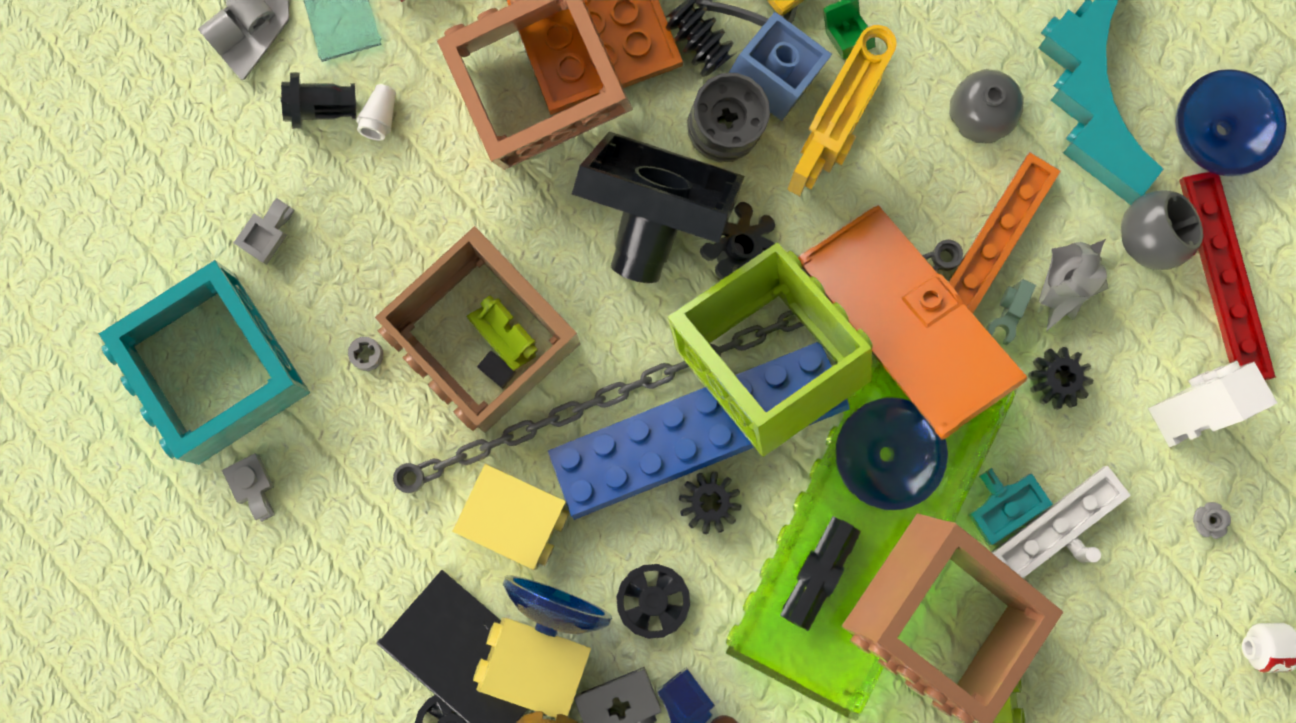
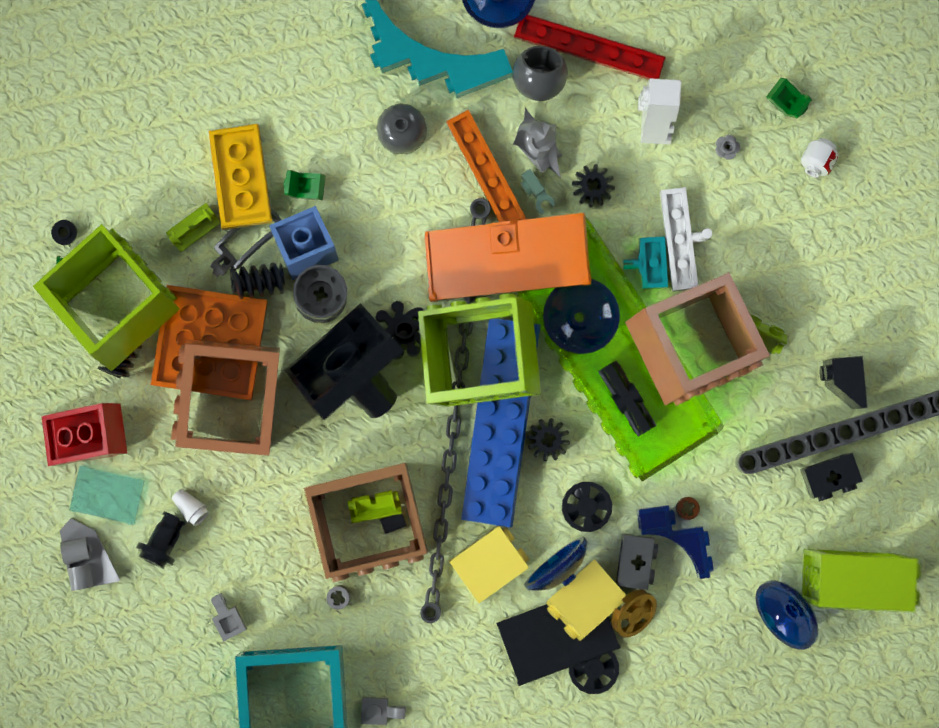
camera: 60 degrees left, 5 degrees up
(842, 109) = (365, 235): yellow plate -> none

